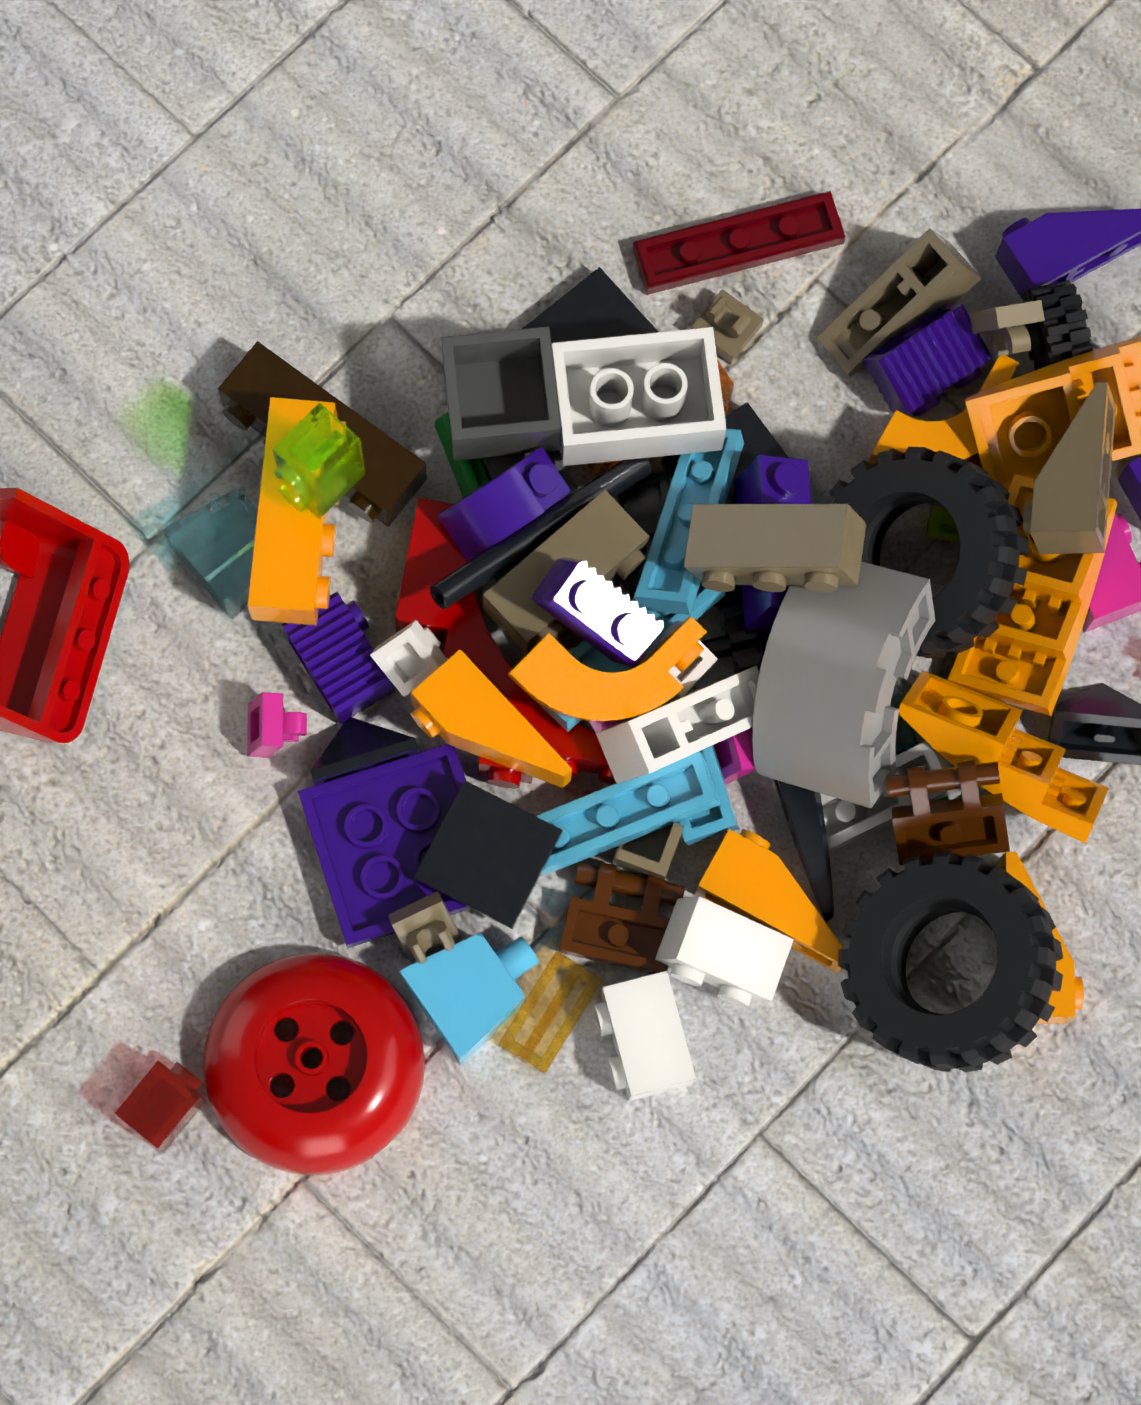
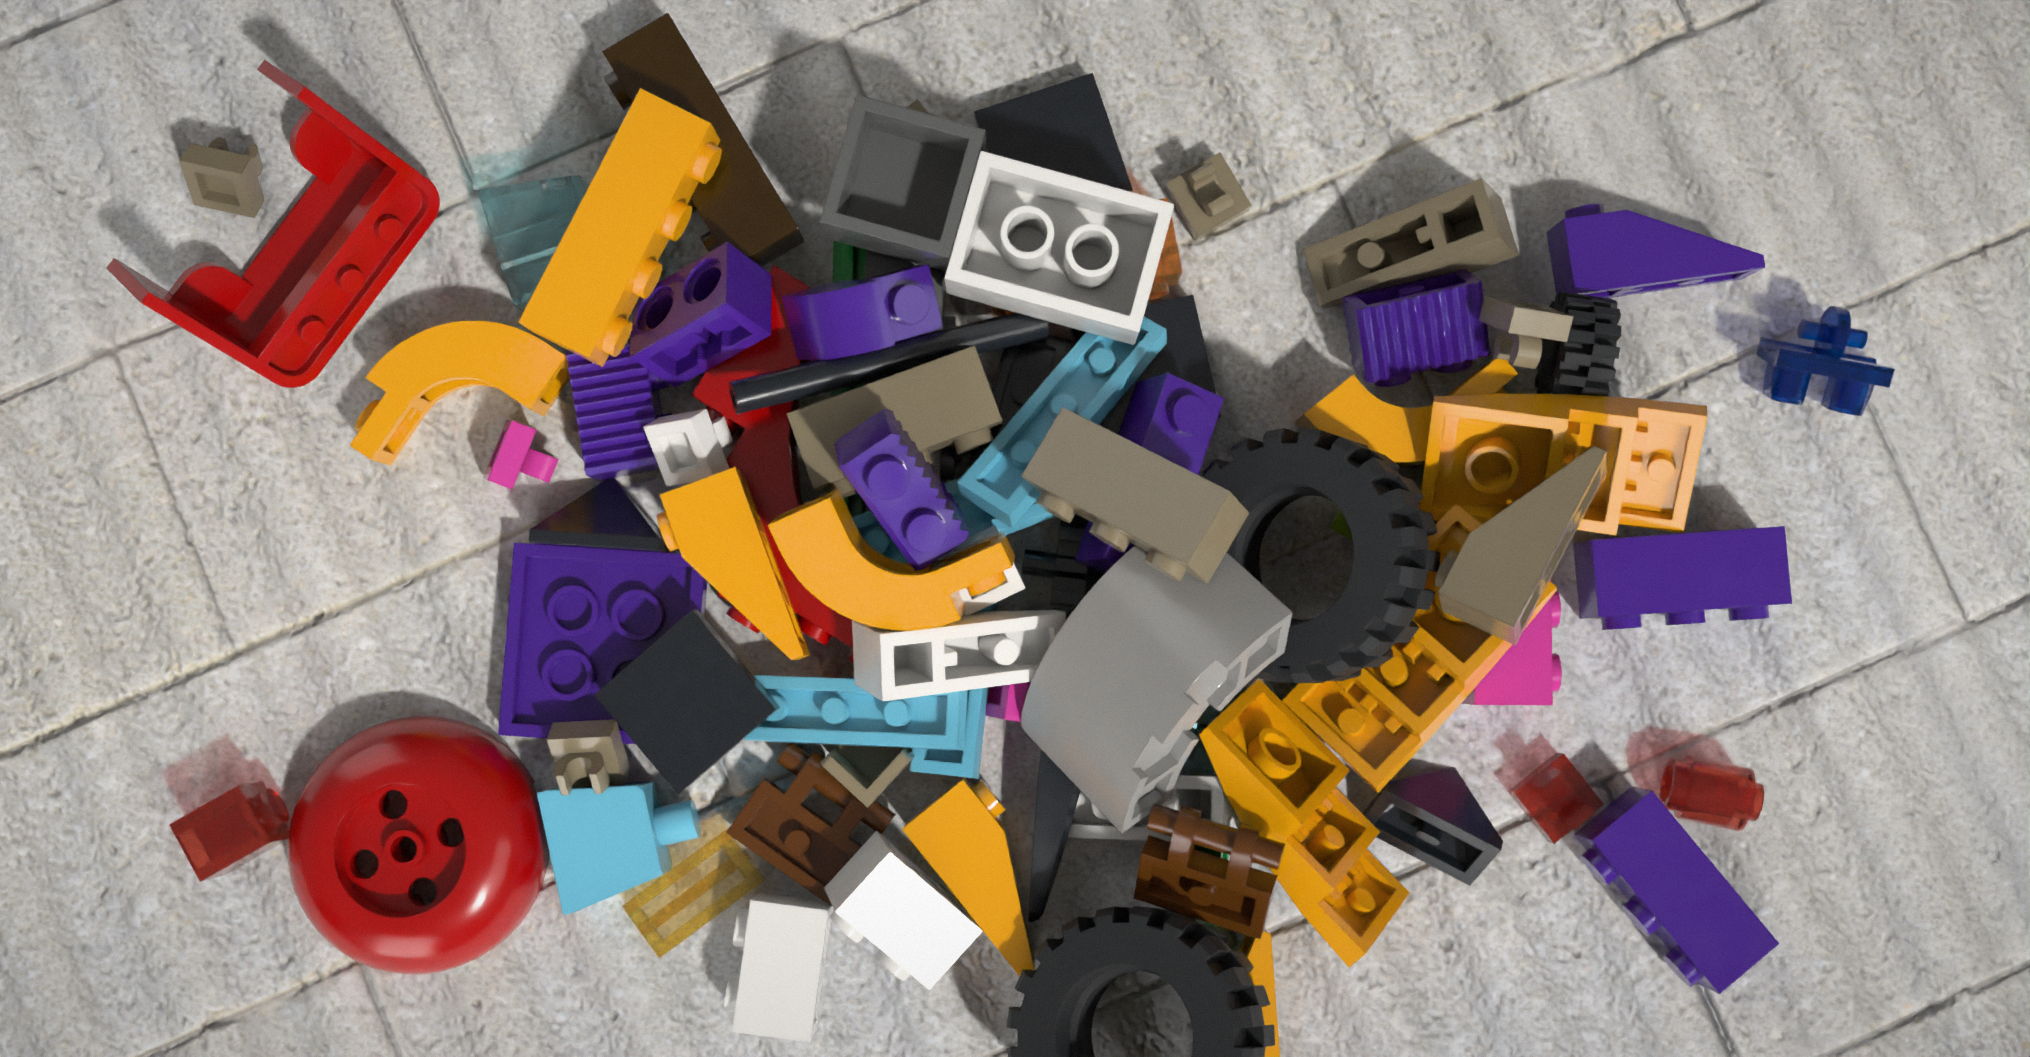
camera: 25 degrees right, 10 degrees up
(196, 663) = (451, 359): none -> light orange arch
(318, 462) = (643, 191): clear neon green brick -> none
(380, 554) = (702, 315): none -> dark purple brick
(738, 242) = (1263, 104): dark red tile -> none

